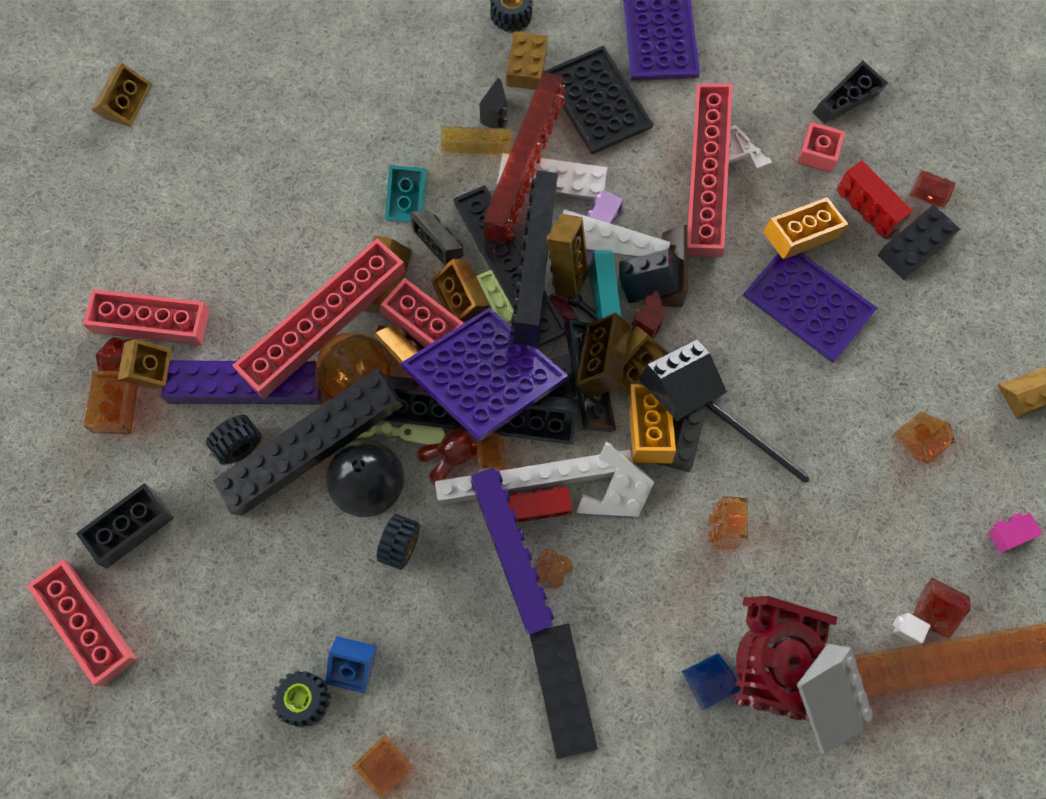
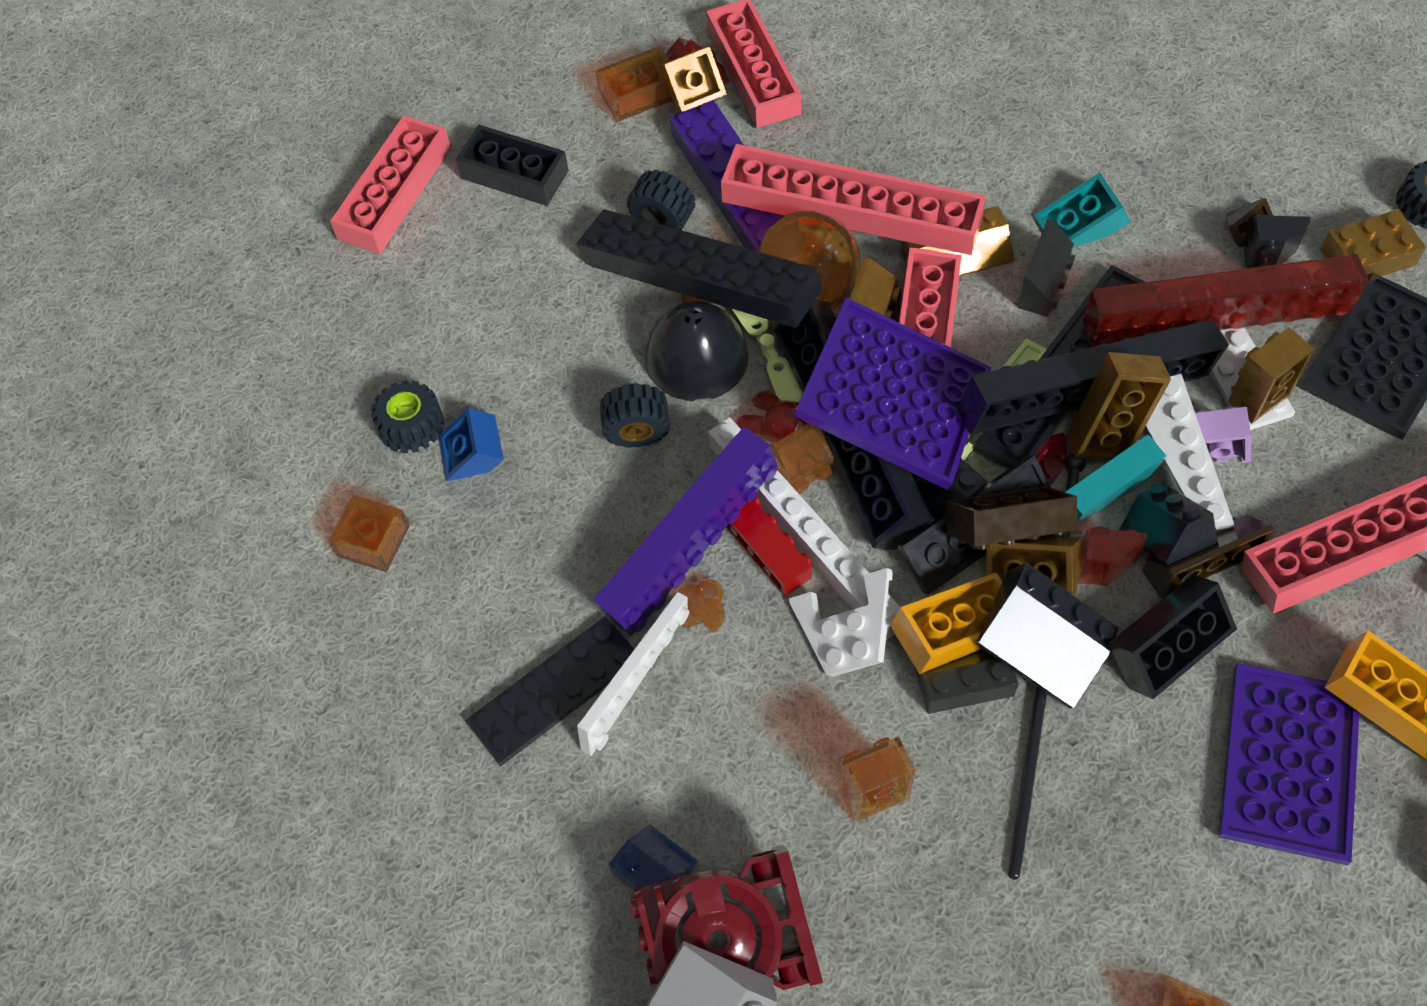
camera: 70 degrees right, 10 degrees down
(460, 290) = (997, 330): pearl gold slope -> none
(465, 109) = (1241, 219): none -> dark brown slope
(476, 140) = (1205, 240): clear yellow brick -> none
(567, 603) = (609, 705): none -> white wing
(591, 164) = (1270, 373): none -> pearl gold brick
(716, 315) = (1173, 636): none -> black brick

